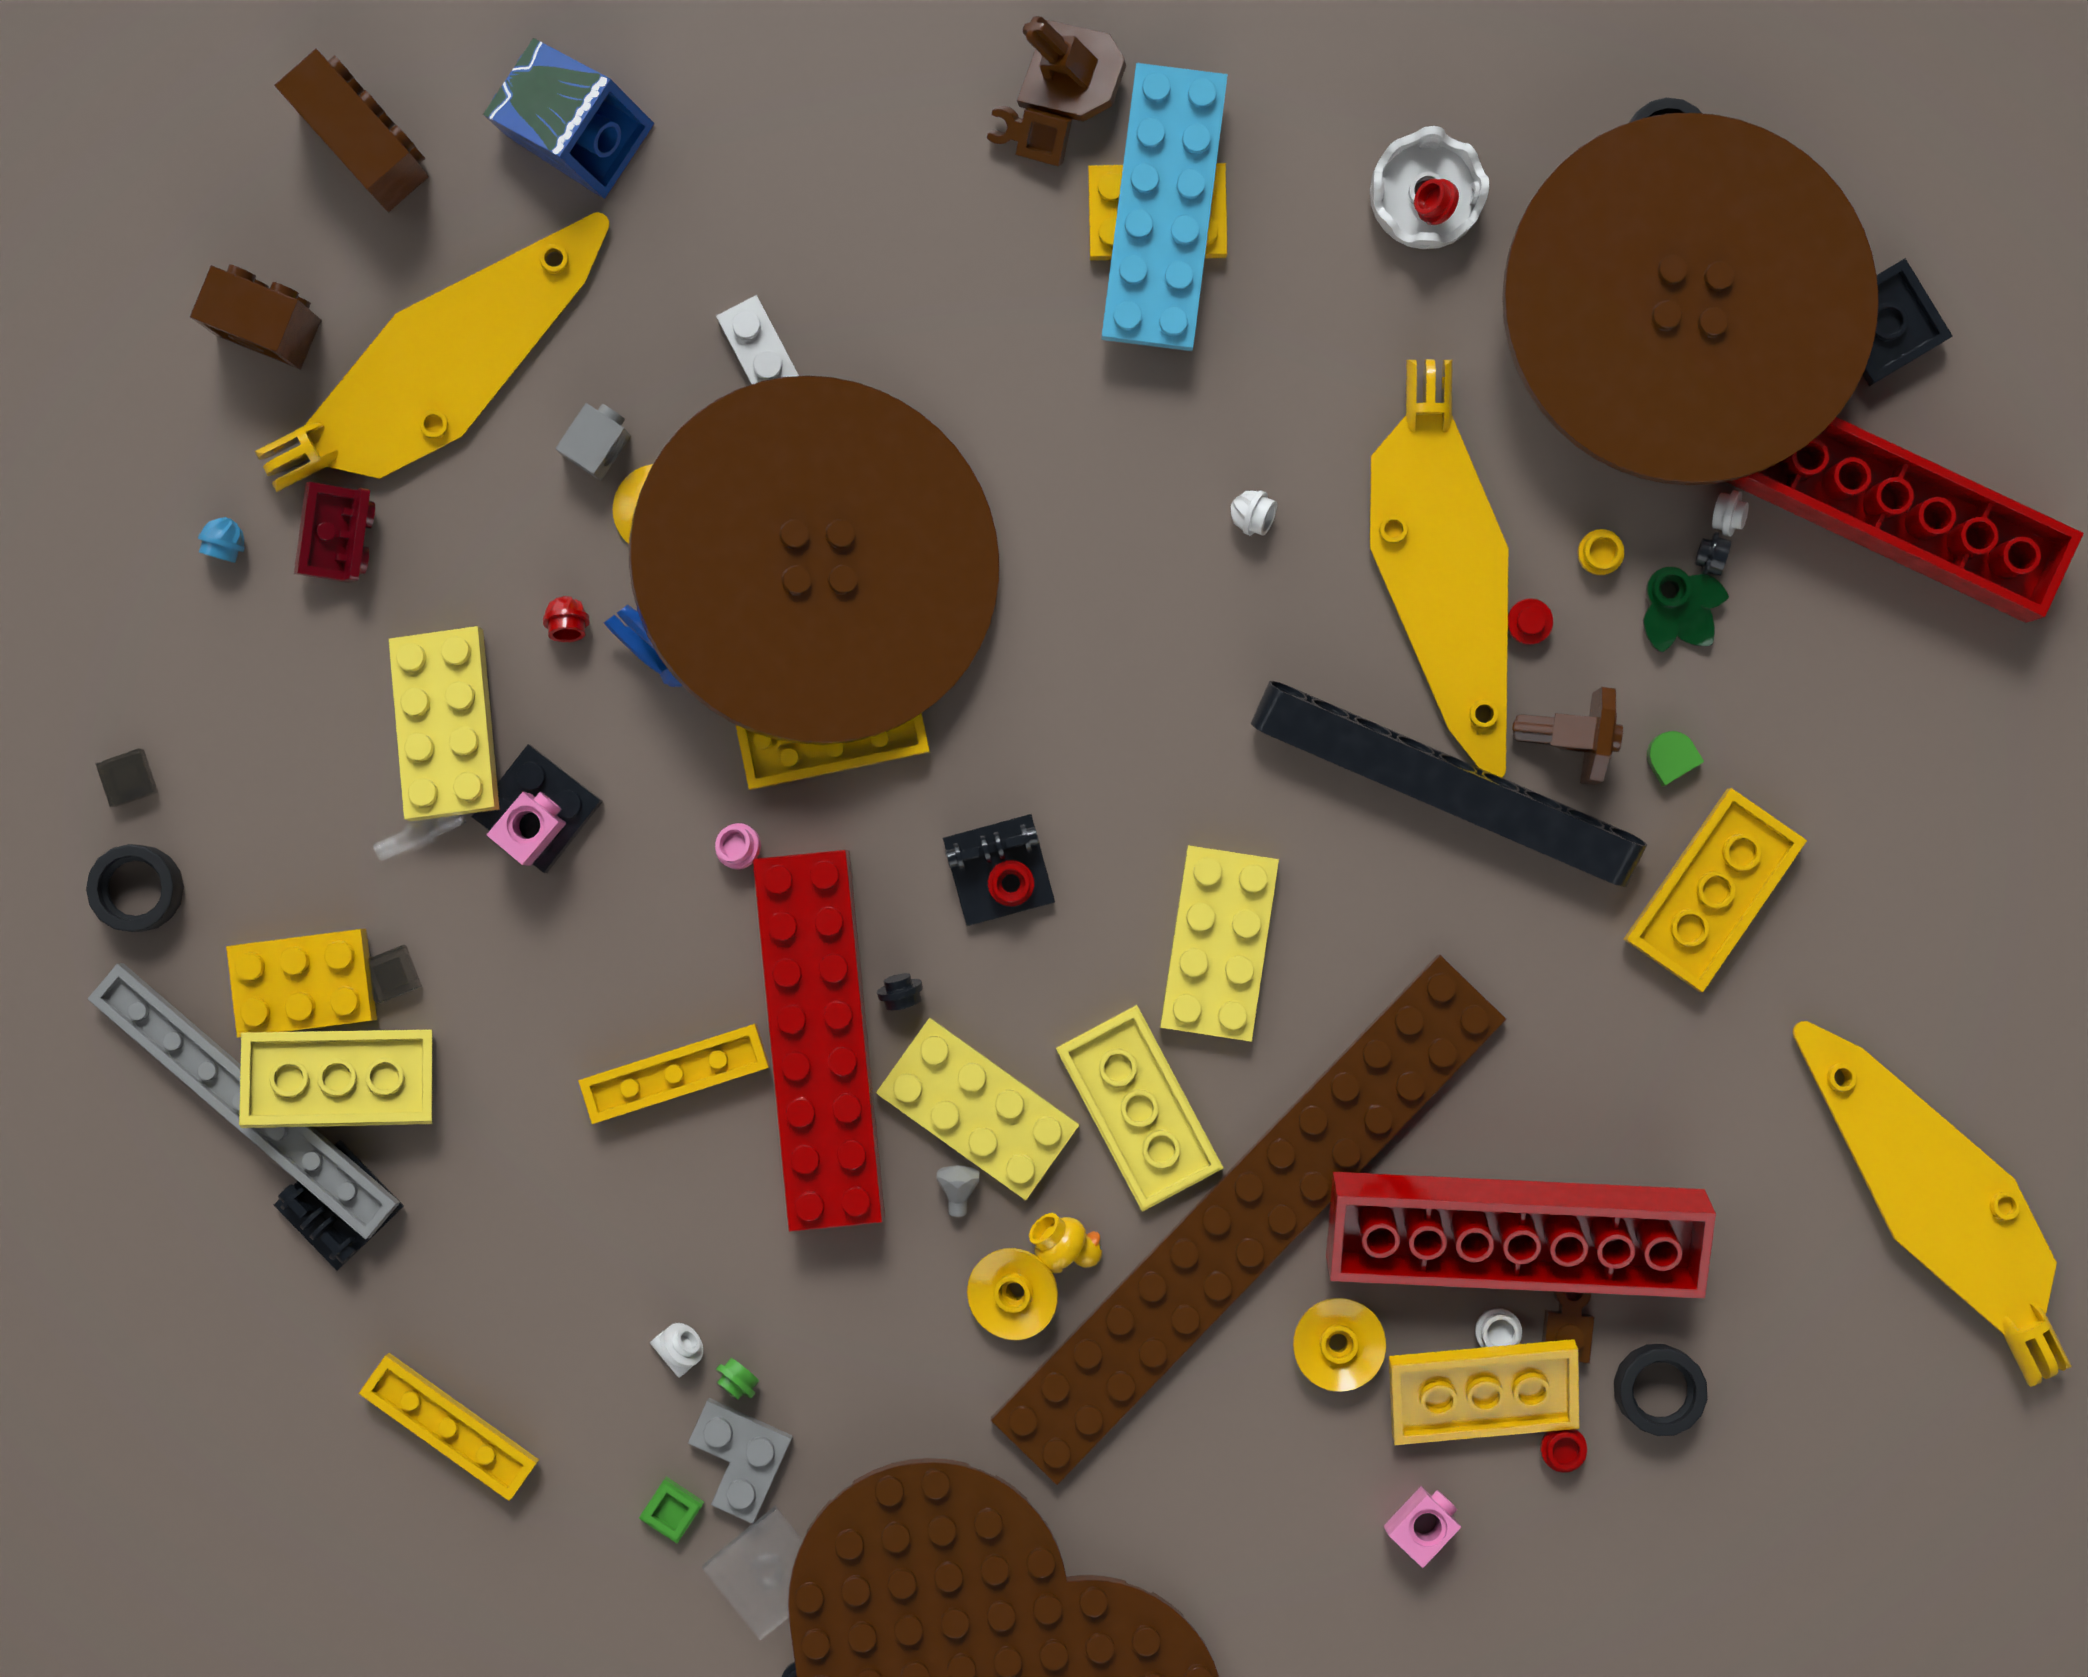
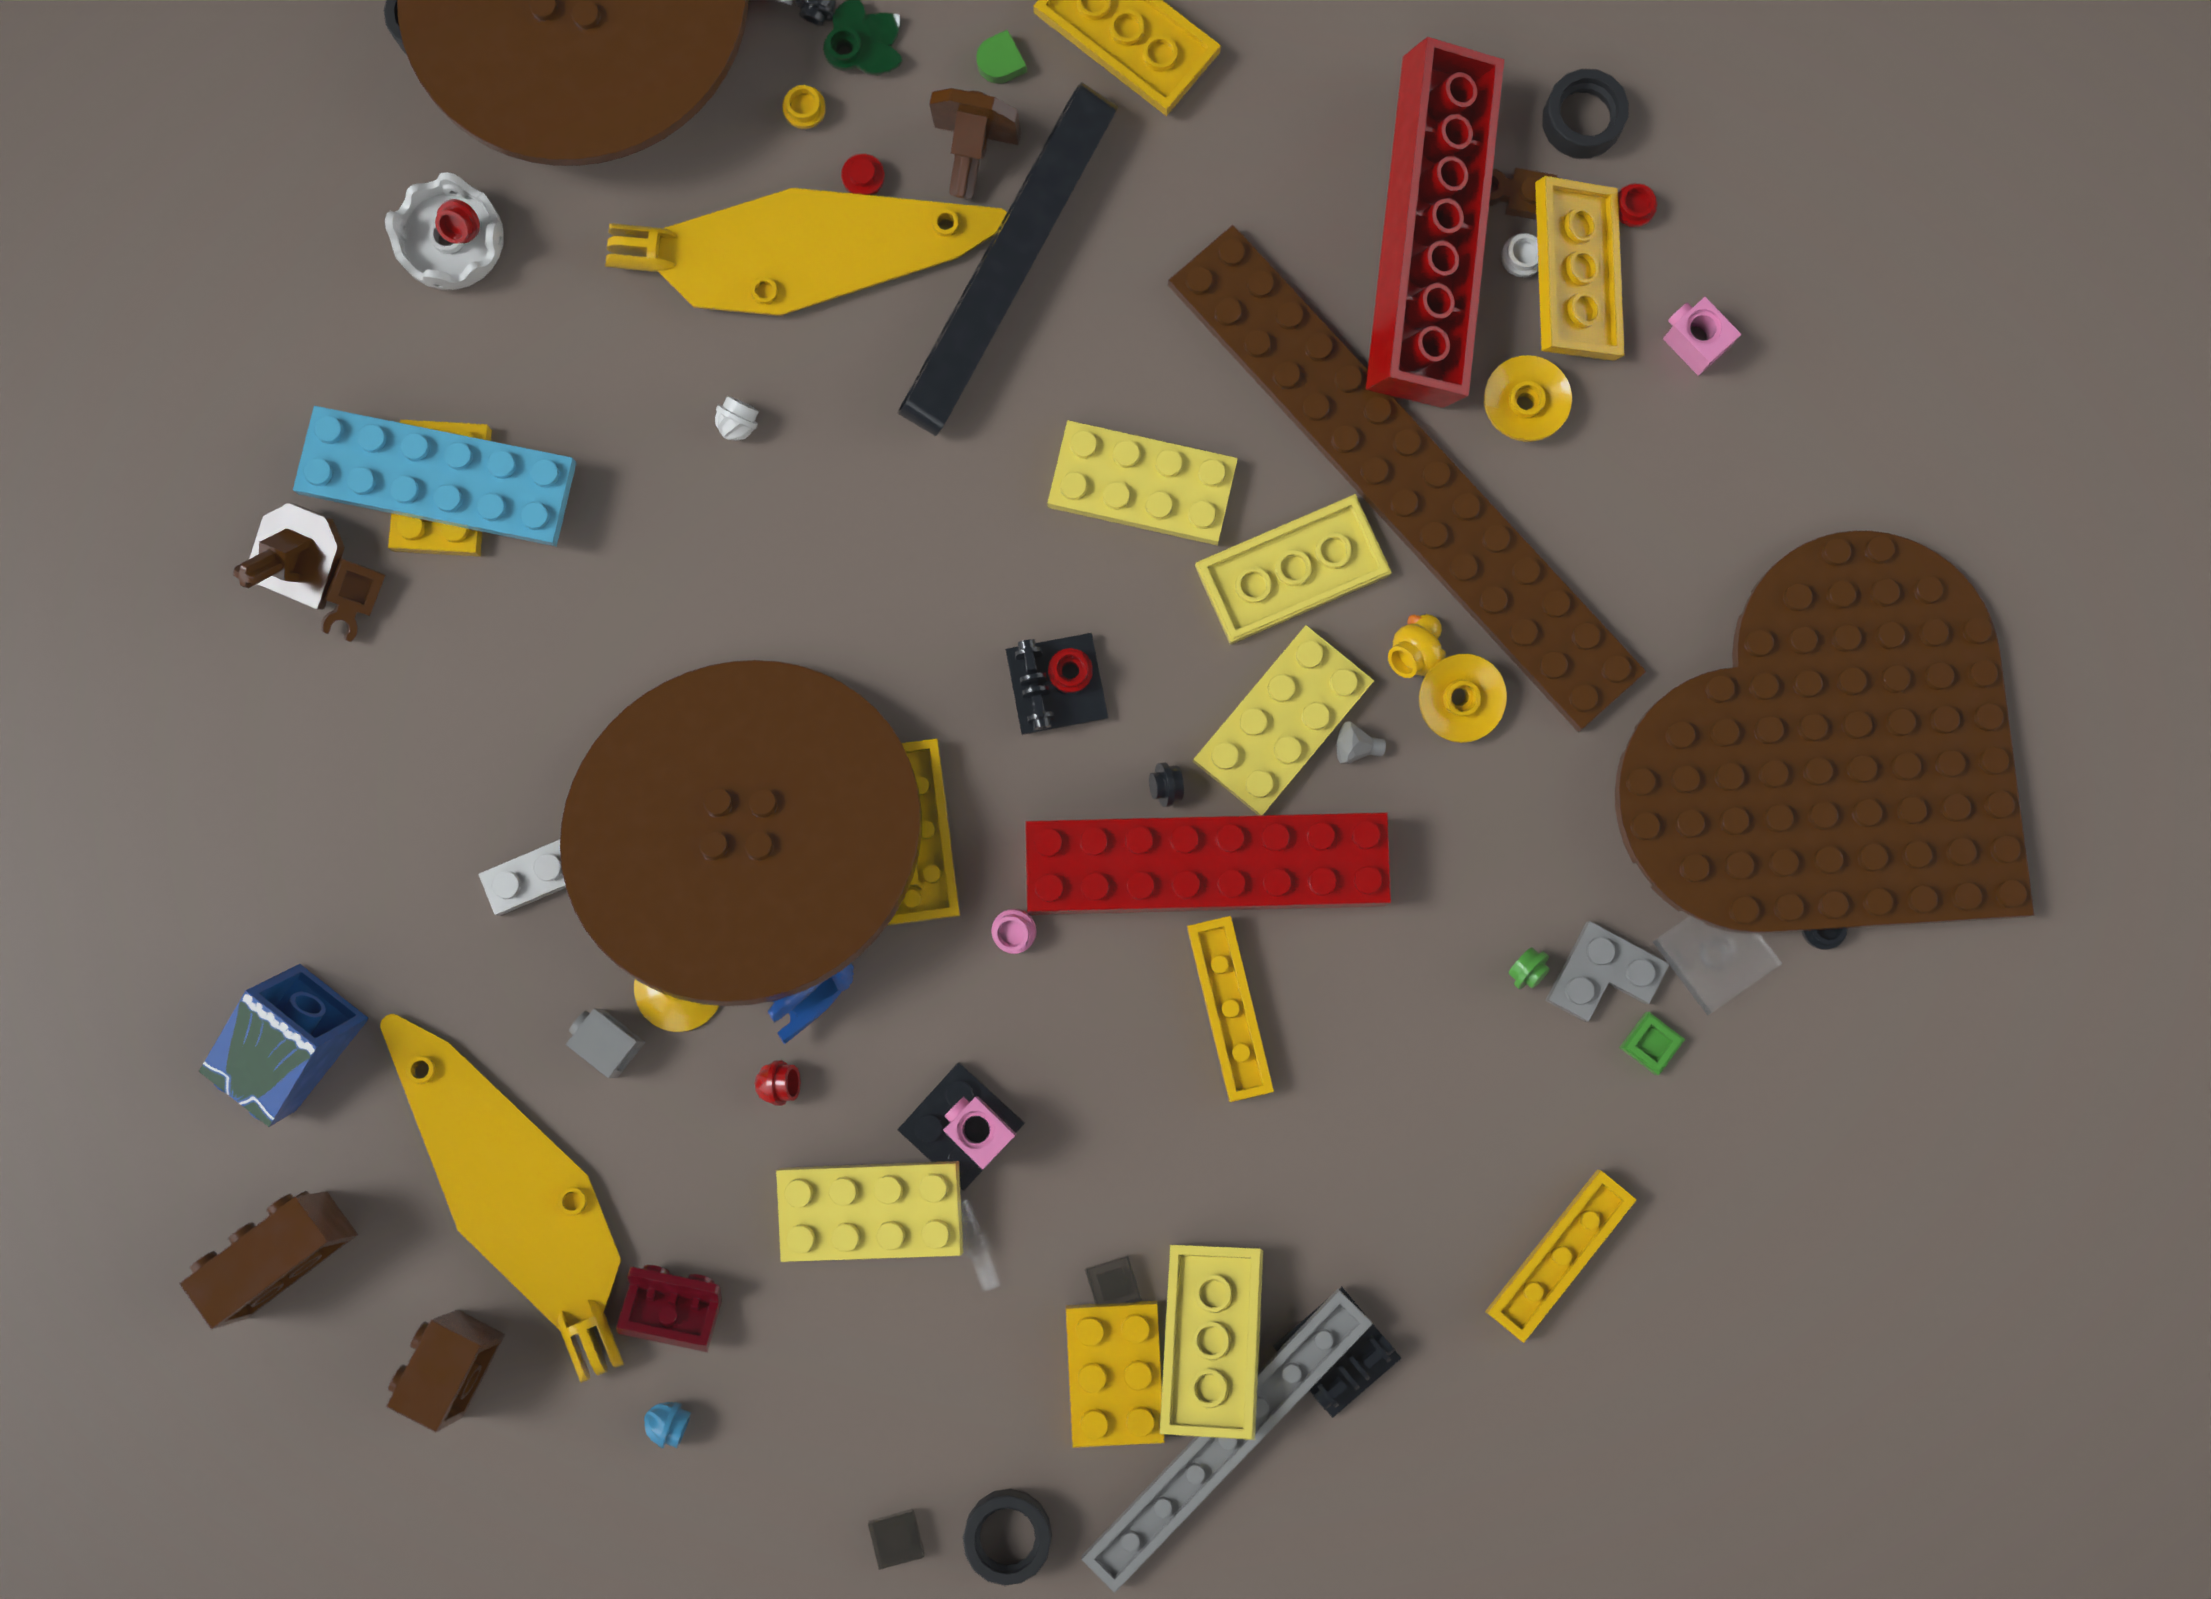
camera: 85 degrees left, 5 degrees down
(679, 1347) = (1496, 1024): white plate -> none

